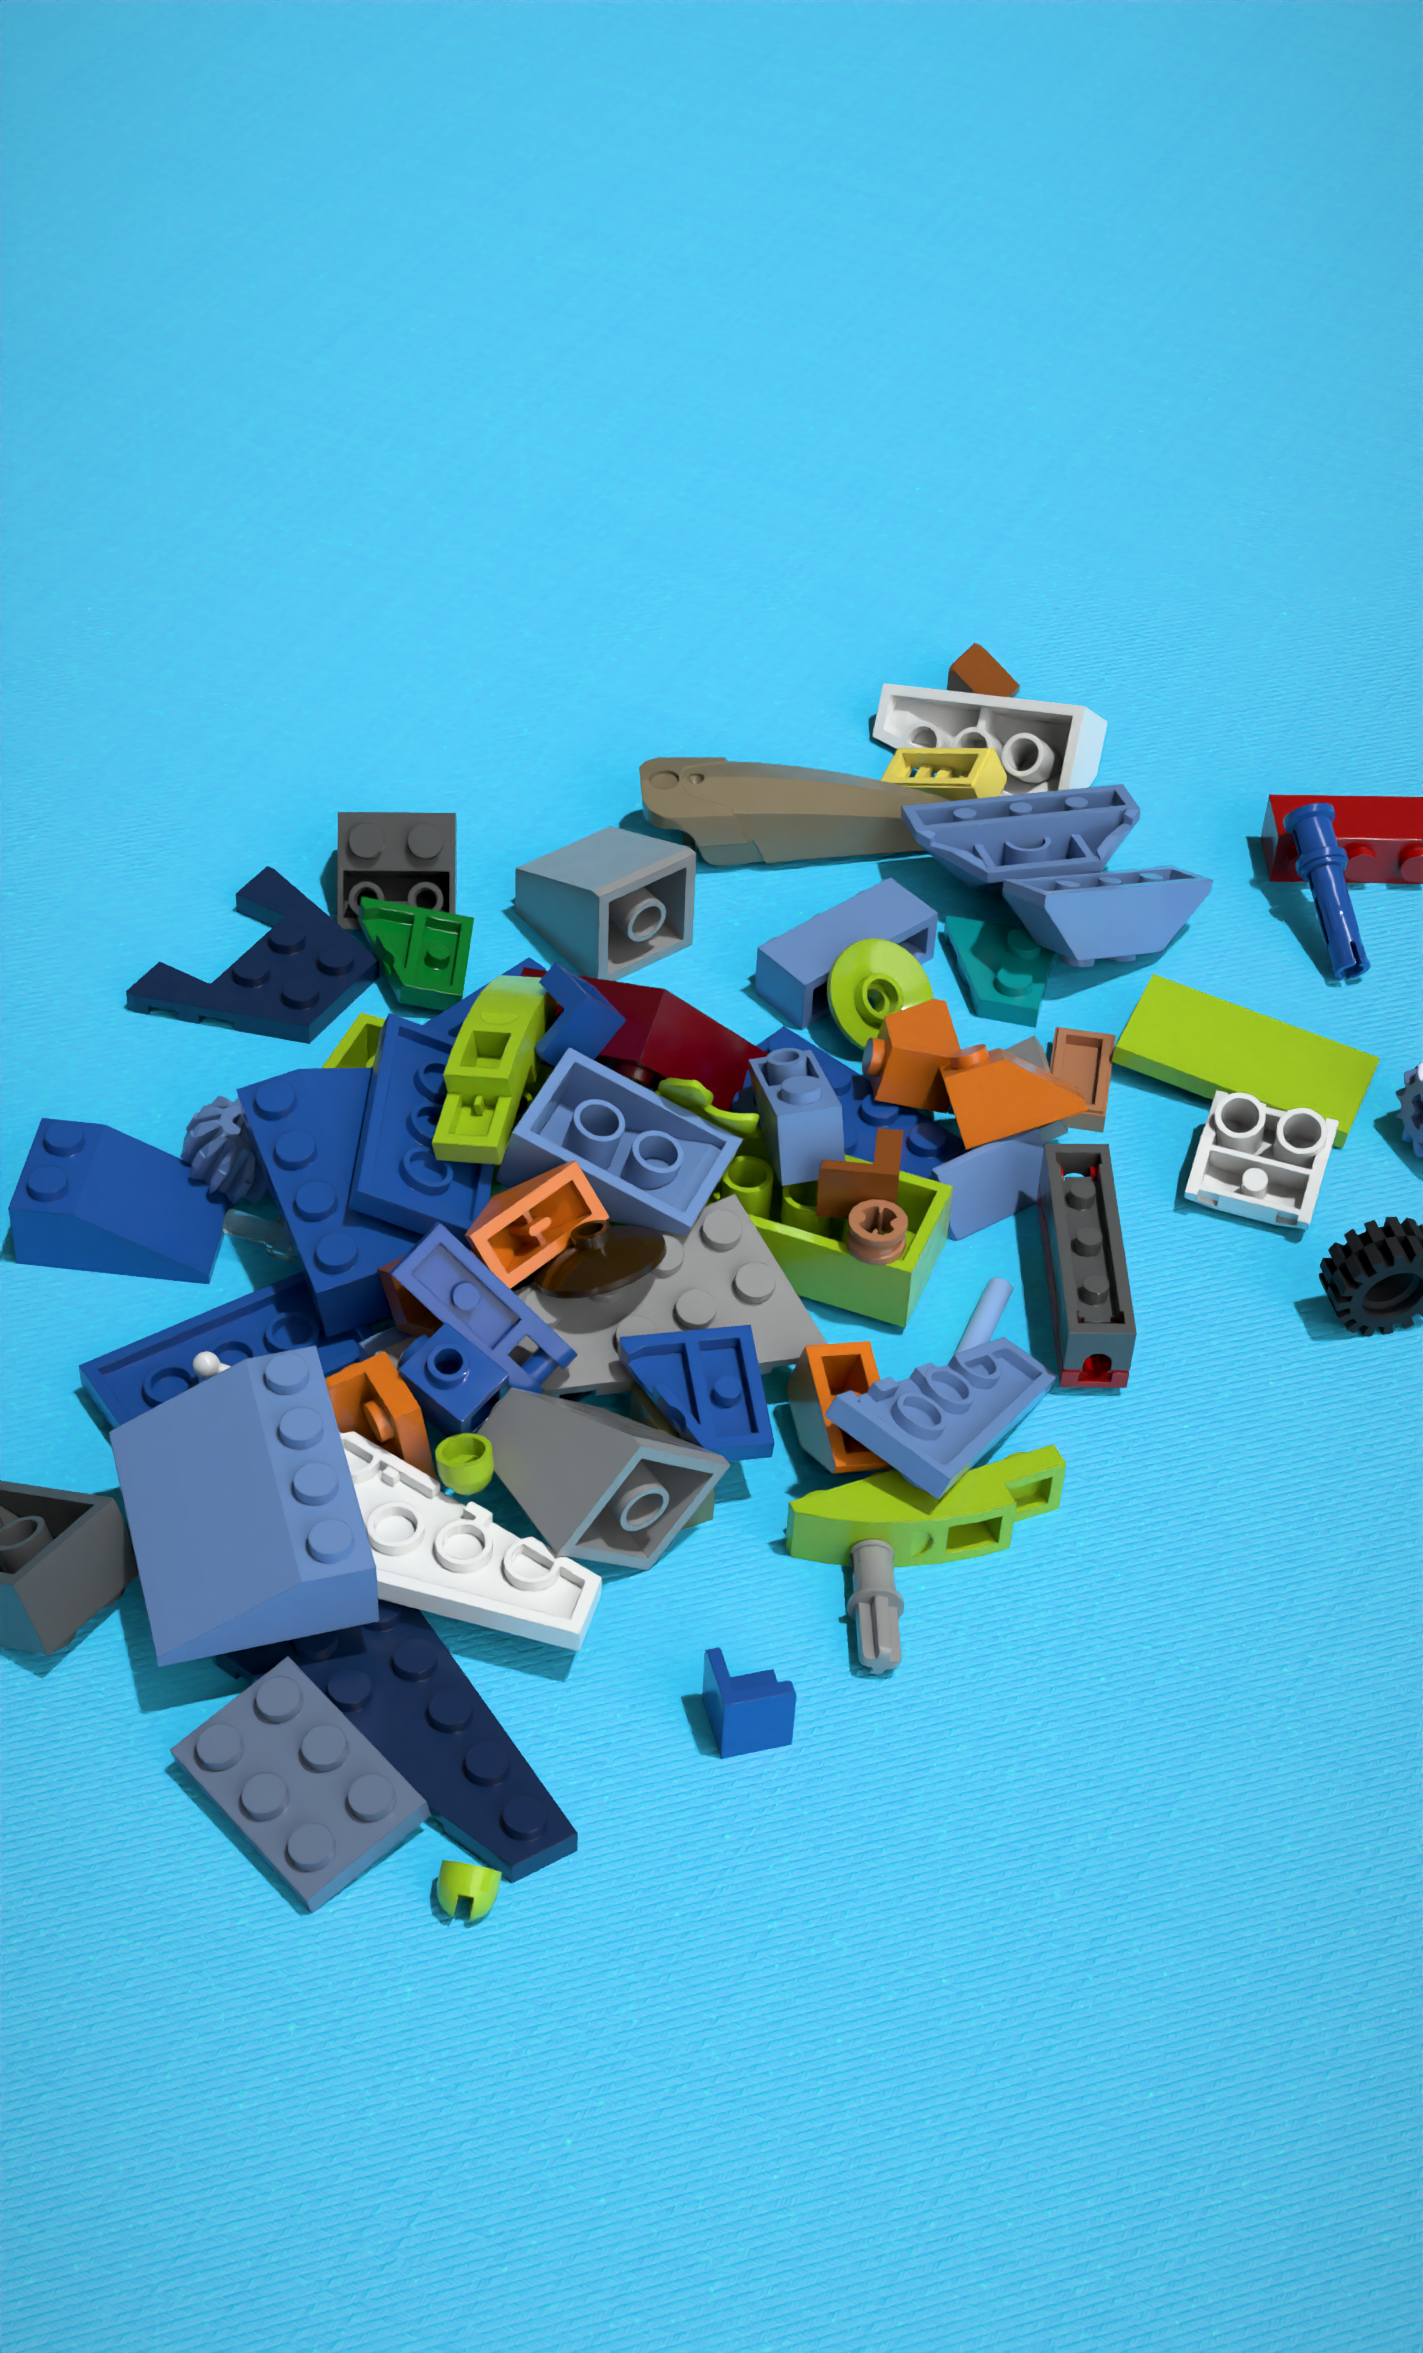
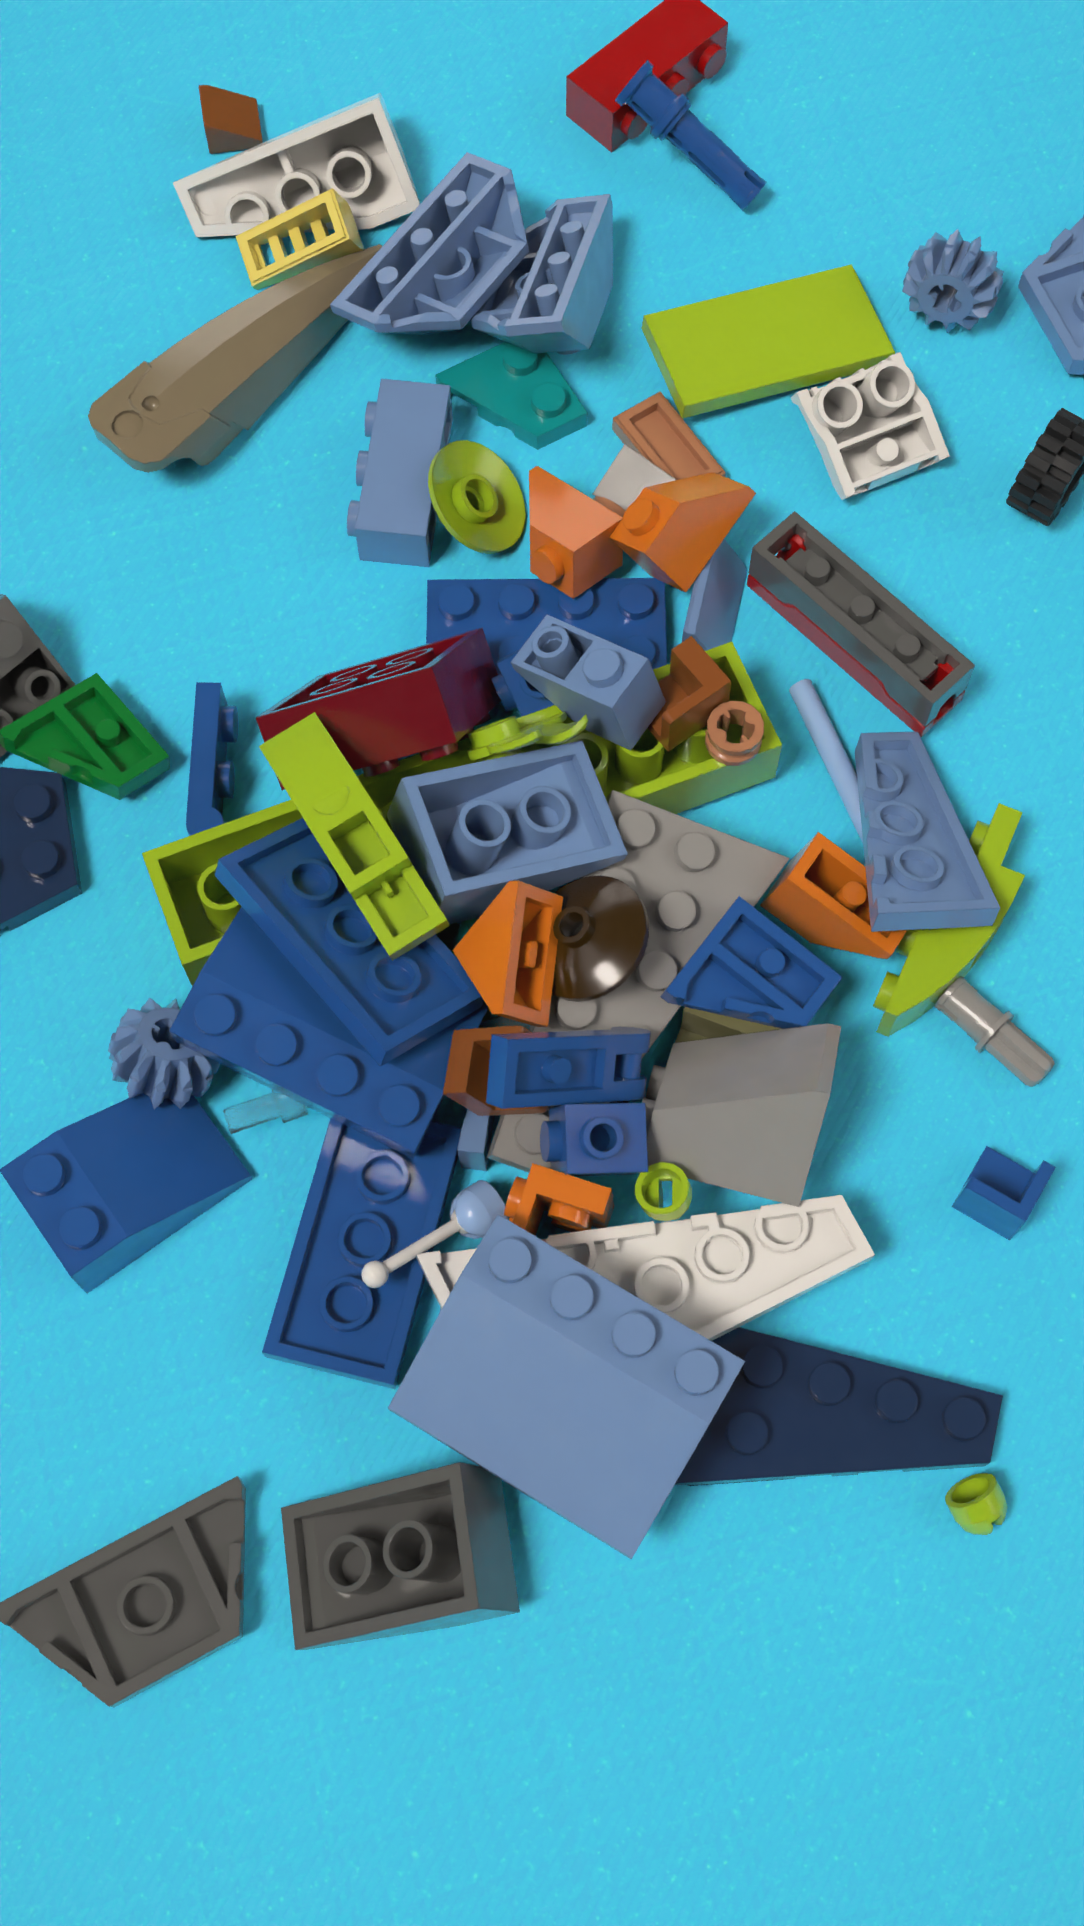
camera: 40 degrees left, 25 degrees up
(300, 1784) = (792, 1538): sand blue plate -> none
(585, 1021) = (372, 743): blue panel -> none
(610, 901) = (182, 569): light grey slope -> none

